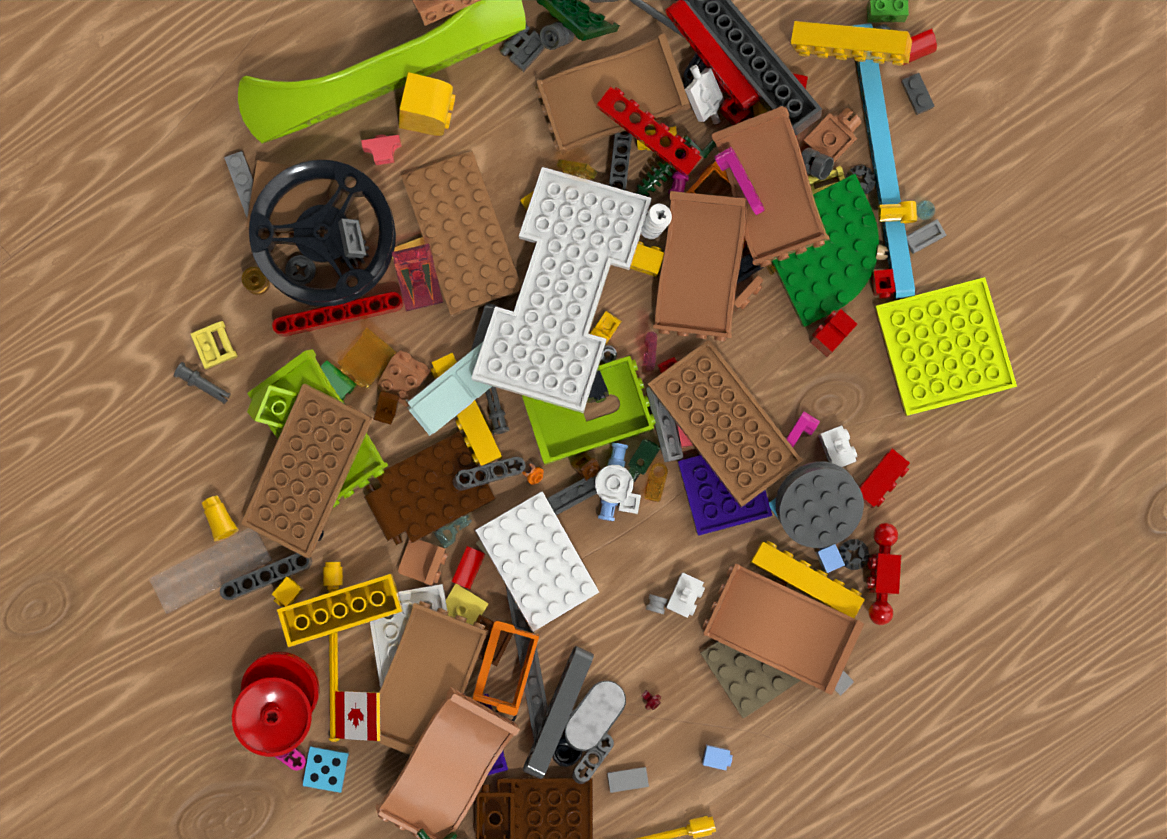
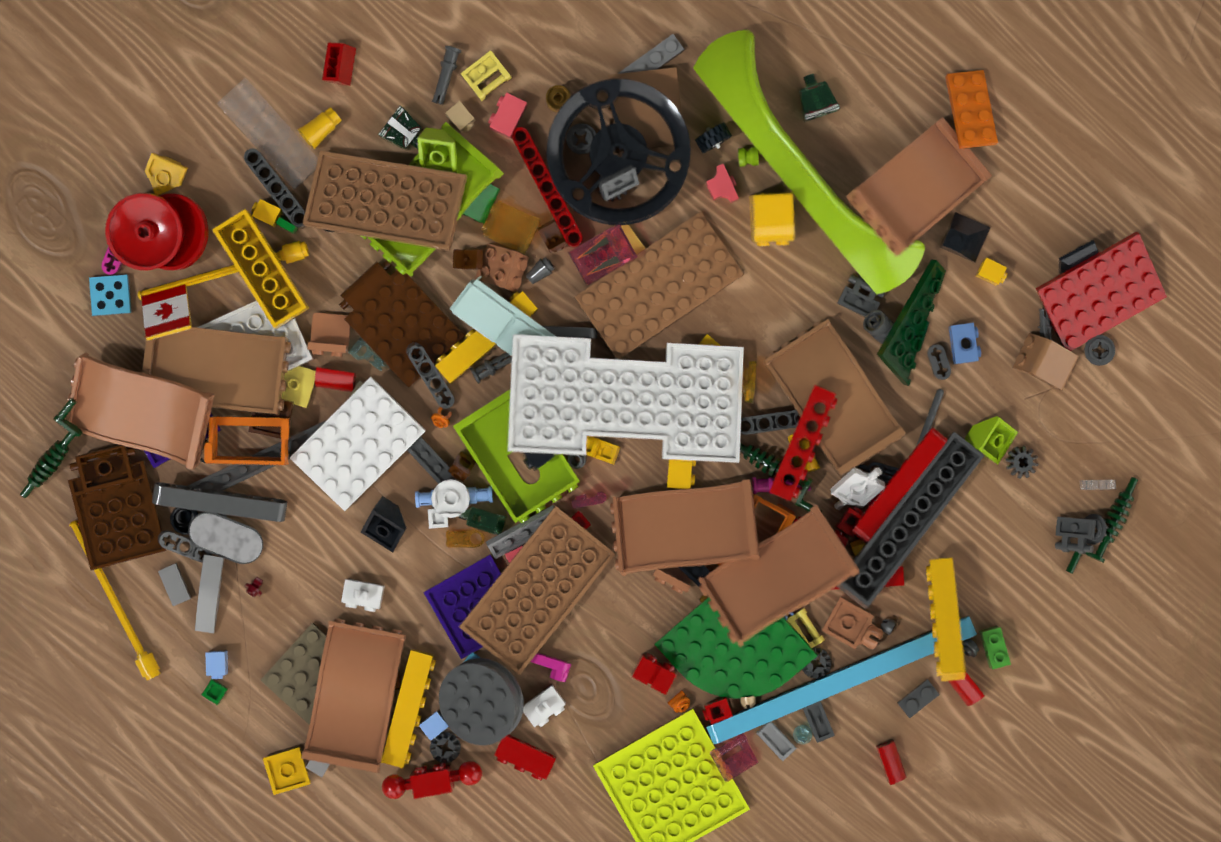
camera: 85 degrees right, 5 degrees up
(161, 483) = (339, 63): none -> red brick
(220, 683) = (164, 173): none -> yellow plate
(244, 438) = (401, 130): none -> clear green torso
(247, 379) = (460, 117): none -> tan brick
(258, 333) = (508, 115): none -> coral brick
(305, 575) = (286, 225): none -> green tile
(325, 39) = (816, 99): none -> clear green torso
(334, 143) = (713, 137): none -> black wheel
(361, 117) = (748, 156): none -> lime wheel
(386, 321) = (552, 236): none -> reddish brown bracket
(416, 342) = (540, 270): none -> dark grey cone
(623, 555) = (385, 524): none -> black slope
(646, 746) = (209, 594): none -> light grey slope
(656, 221) = (718, 473): white piece -> none
(656, 604) = (347, 569): light grey wheel -> none
(729, 159) = (796, 529): dark pink beam -> none
(743, 767) = (214, 691): none -> green tile
(817, 164) = (818, 615): dark grey wheel -> none
(838, 715) = (286, 770): none -> yellow plate
(842, 103) = (888, 625): none -> dark grey hinge
(866, 317) = (679, 702): none -> orange plate
(903, 212) = (790, 712): yellow piece -> none
(918, 191) = (818, 721): none -> dark grey plate
(937, 277) = (737, 762): none -> clear pink plate
(972, 134) = (891, 762): none -> red brick

